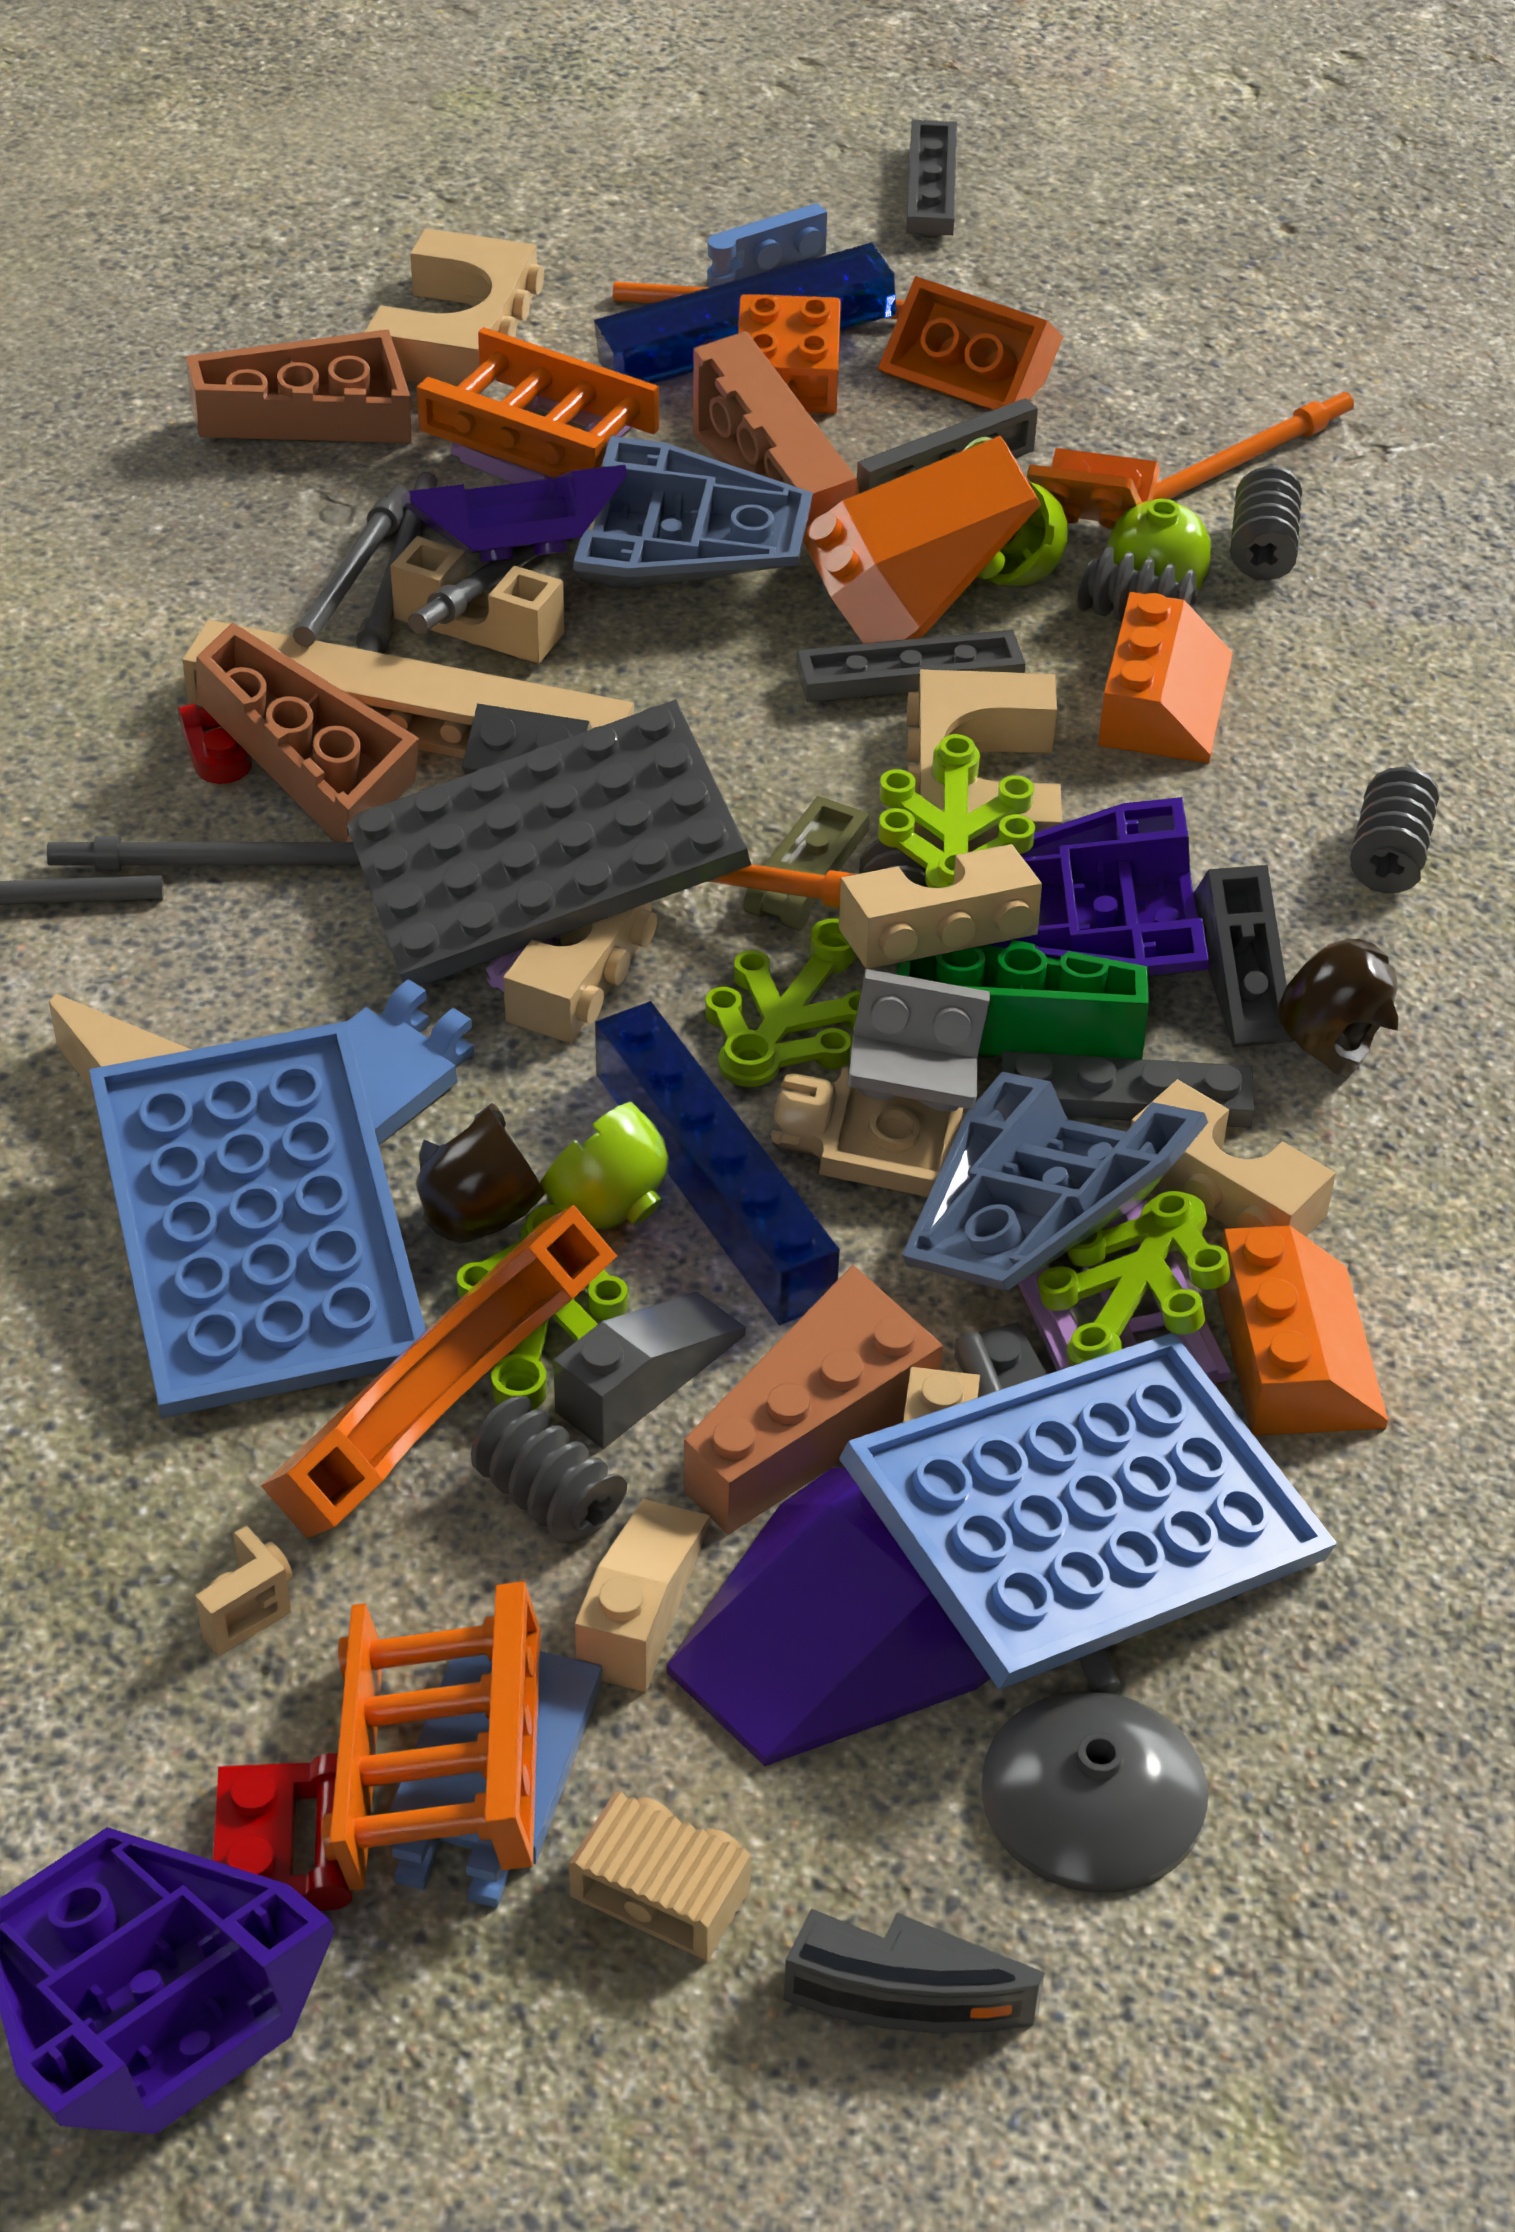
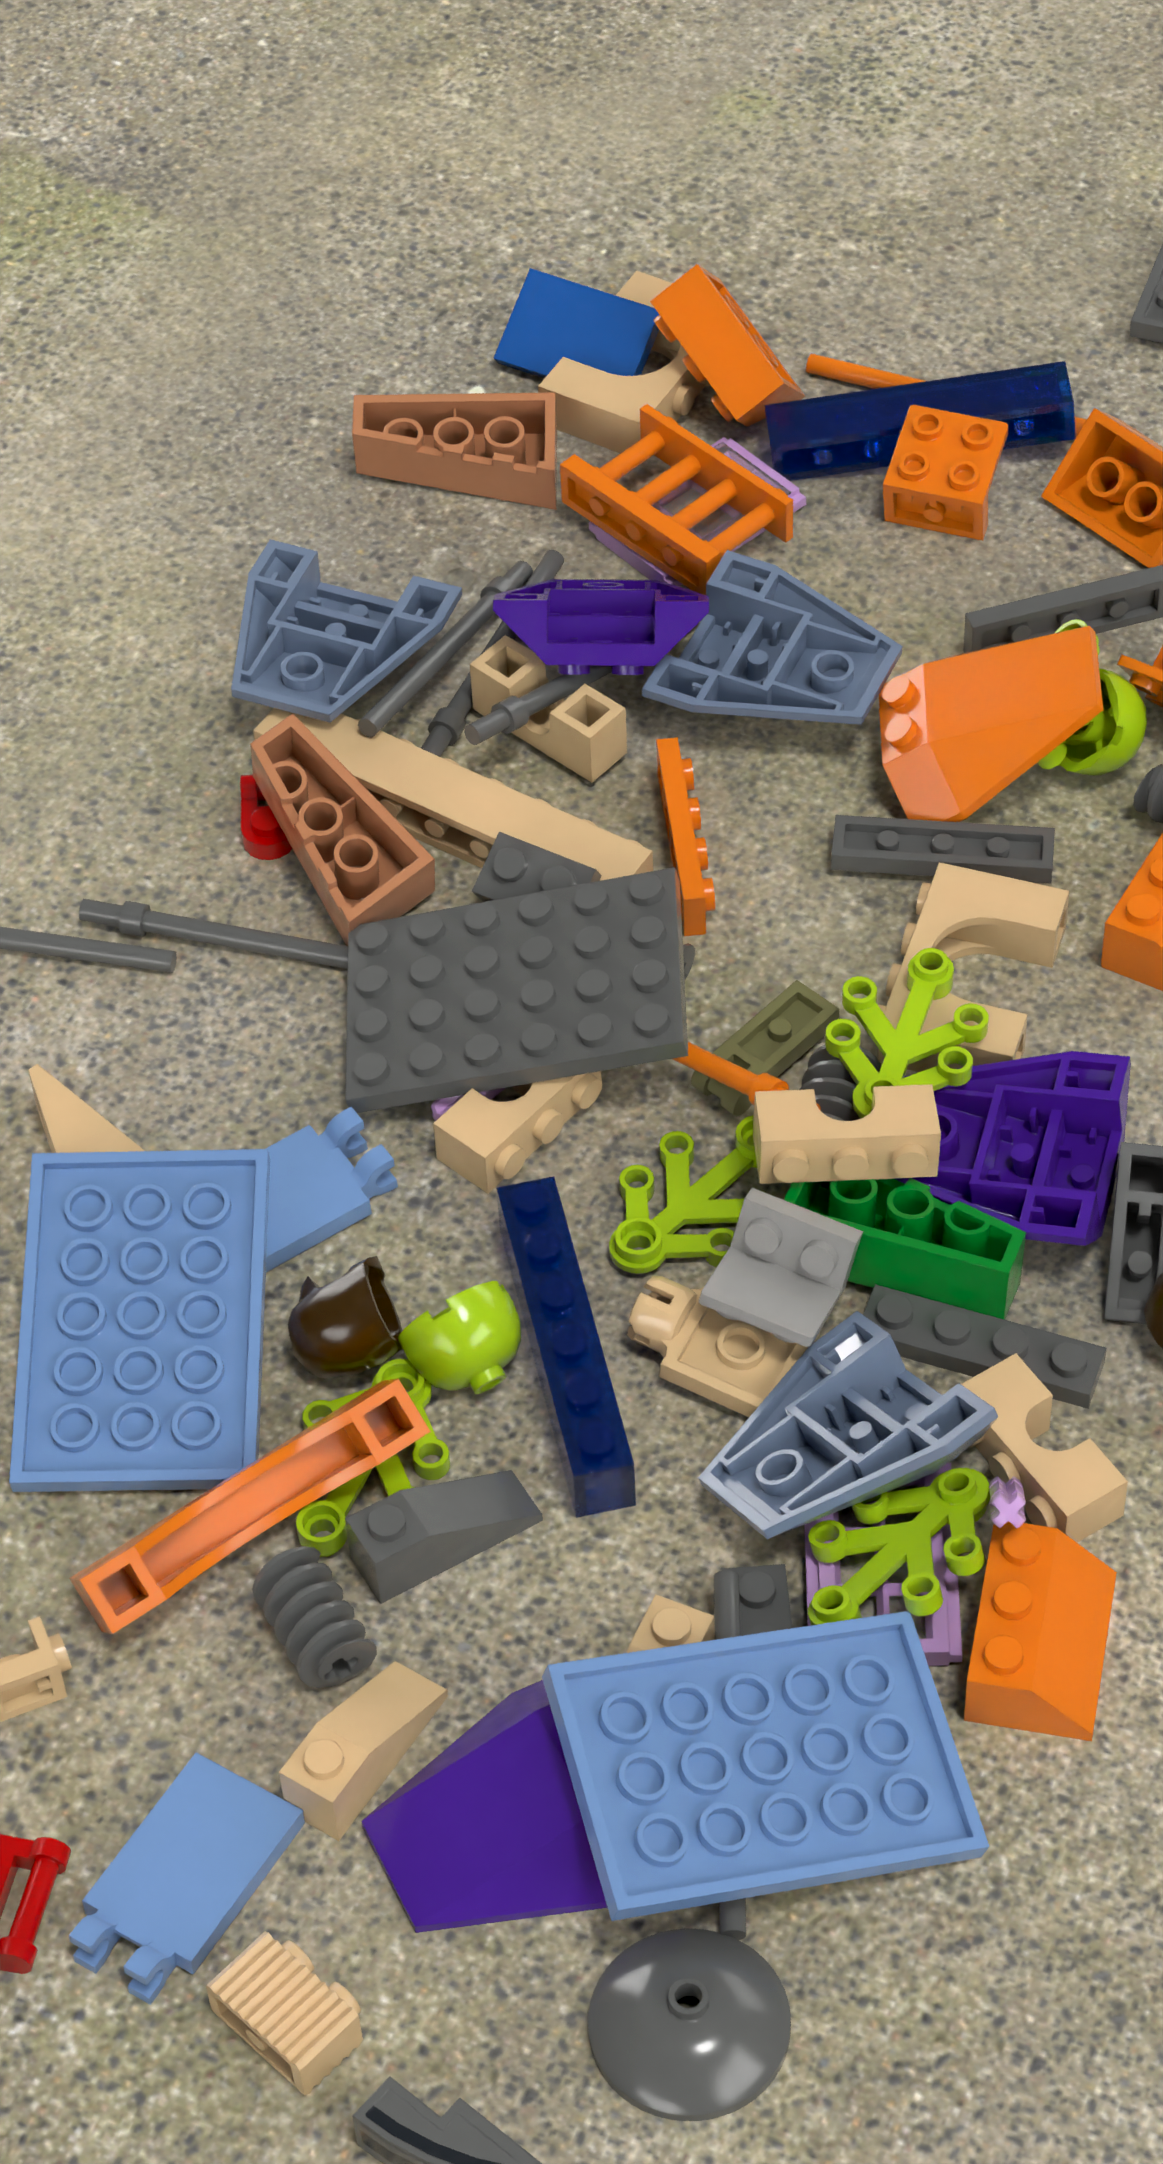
camera: 20 degrees right, 5 degrees up
(223, 576) = (321, 644): none -> sand blue wedge
(363, 273) = (577, 323): none -> blue tile
(502, 1754) = (180, 1877): orange fence -> none
(538, 271) = (723, 347): none -> orange slope
(639, 670) = (681, 819): none -> orange plate
(759, 425) = (890, 563): nougat wedge -> none
(767, 244) = (975, 334): medium blue plate -> none
(816, 1389) = (561, 1602): nougat wedge -> none
(1235, 1208) = (1007, 1502): none -> lavender axle

